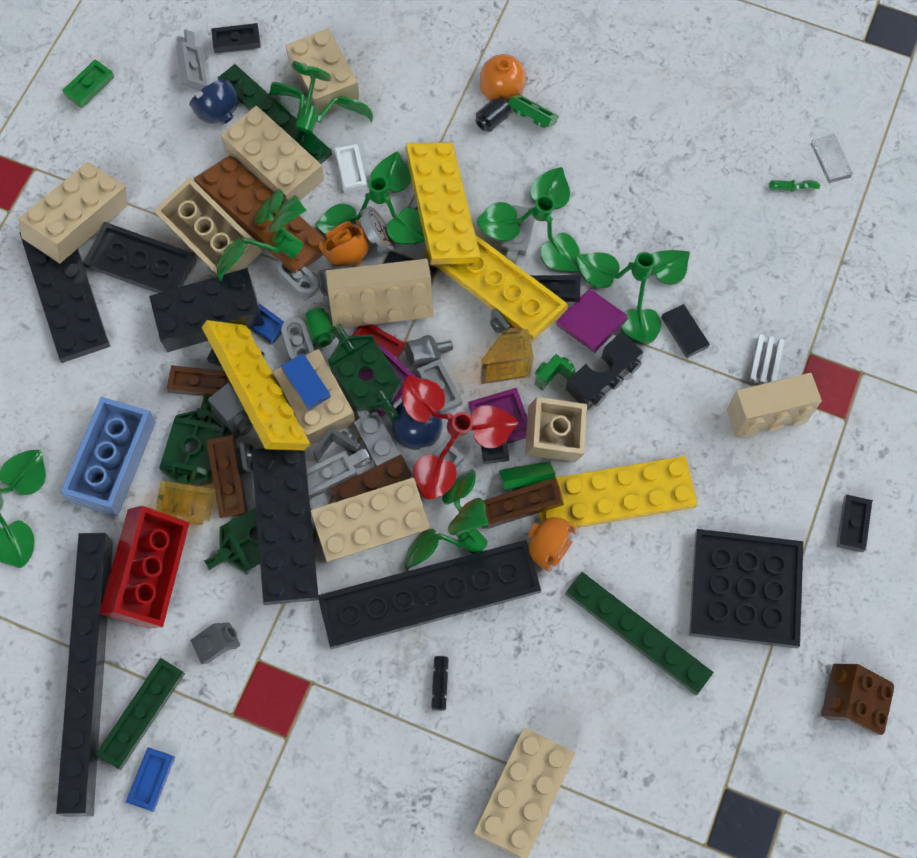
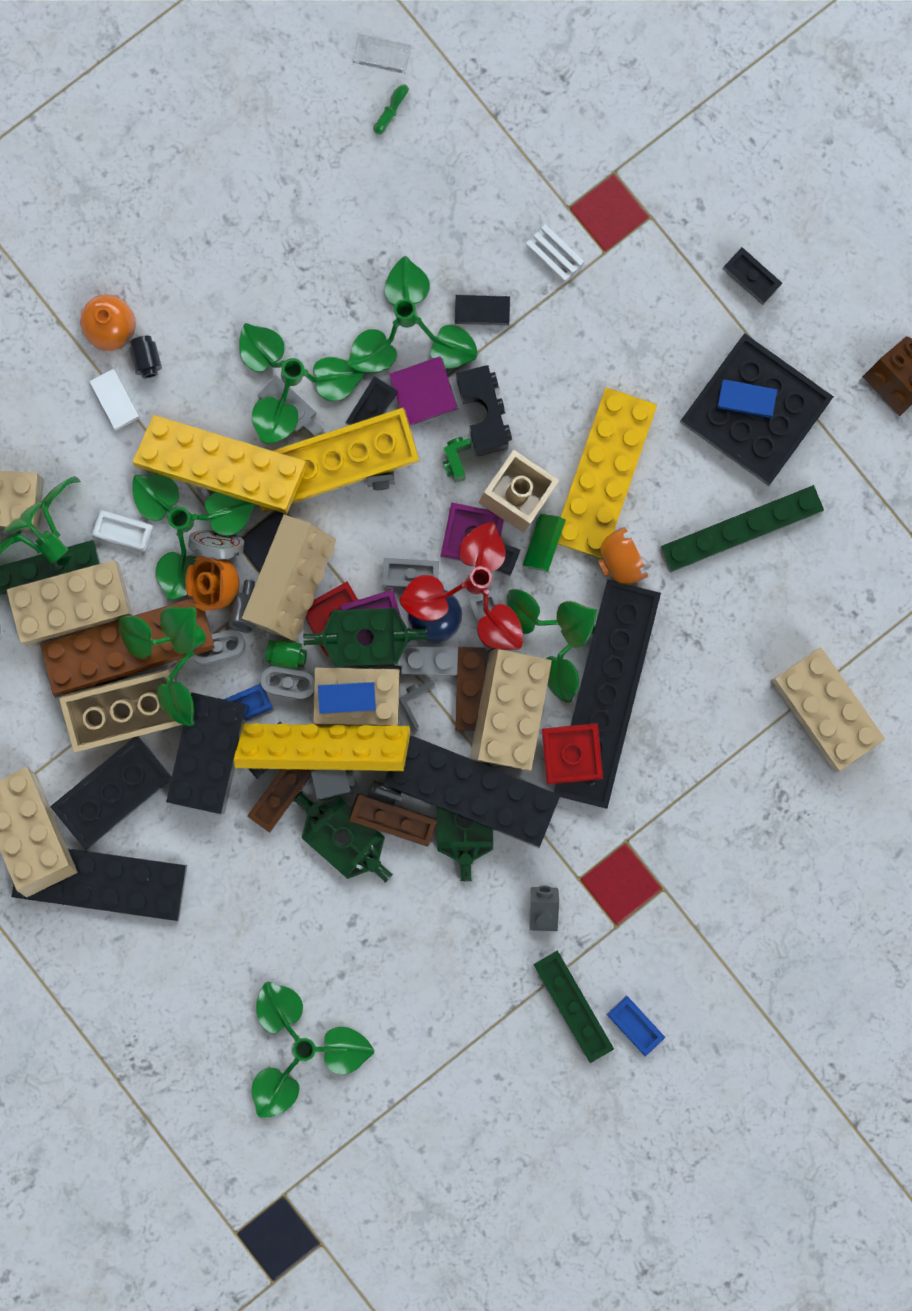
camera: 60 degrees left, 15 degrees up
(84, 678) = (510, 1038): black brick -> none
(108, 456) = (311, 919): medium blue brick -> none
(144, 567) = (445, 938): red brick -> none
(185, 501) = (398, 869): clear yellow slope -> none
(335, 471) = (441, 716): light grey plate -> none
(360, 590) = (572, 753): none -> red tile
(425, 350) = (367, 567): dark grey piece -> none
(439, 685) = (690, 728): black axle -> none
(447, 113) = (114, 399): none -> white tile
(508, 357) = (422, 491): clear yellow slope -> none
(523, 502) = (570, 561): reddish brown plate -> none
(541, 115) = (170, 310): green plate -> none
(750, 572) = (747, 398): none -> blue tile
(773, 405) = (609, 278): tan brick -> none

